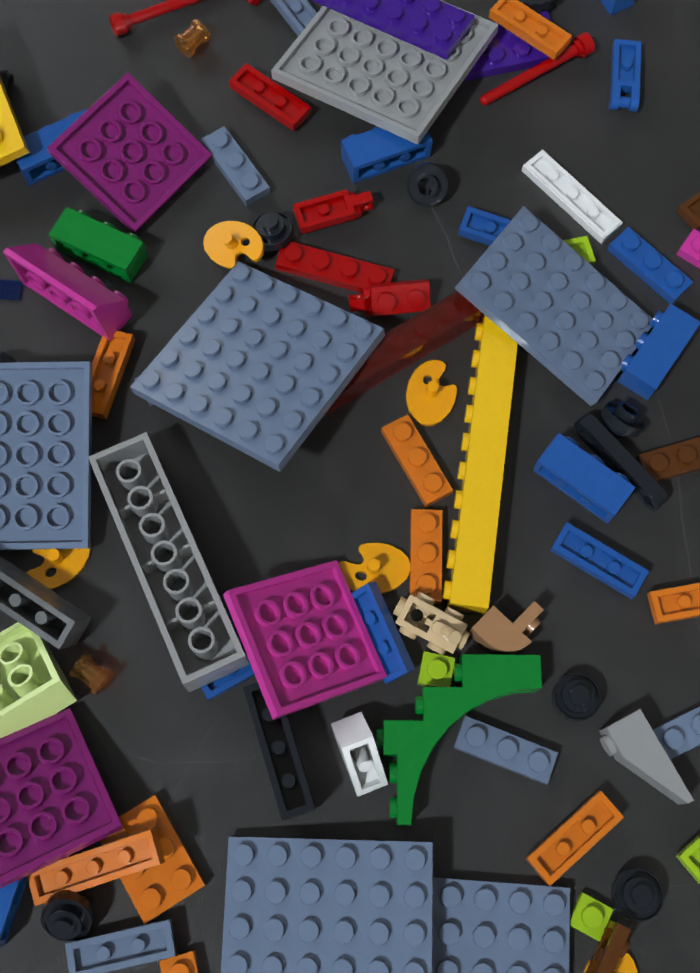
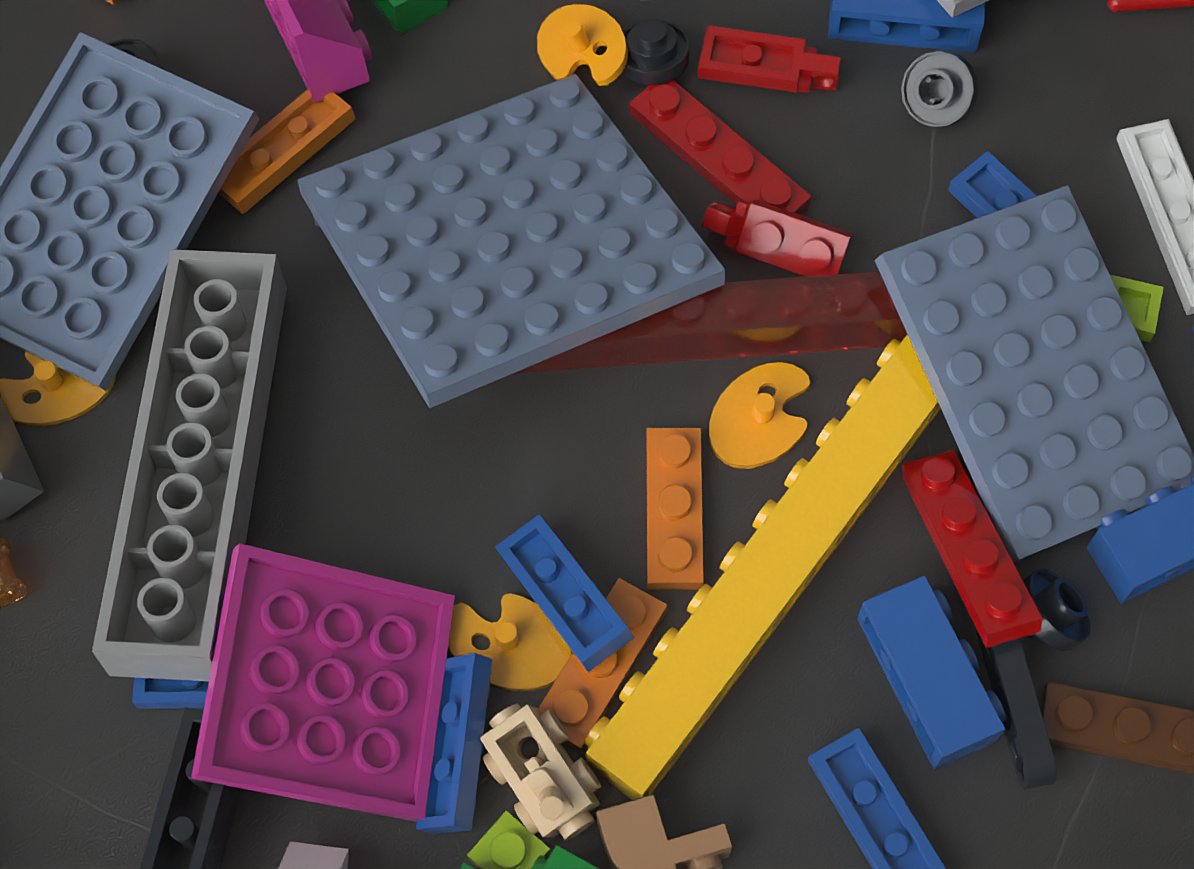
camera: 35 degrees right, 5 degrees down
(391, 530) = (564, 593): none -> blue plate
(571, 408) = (971, 549): none -> red plate

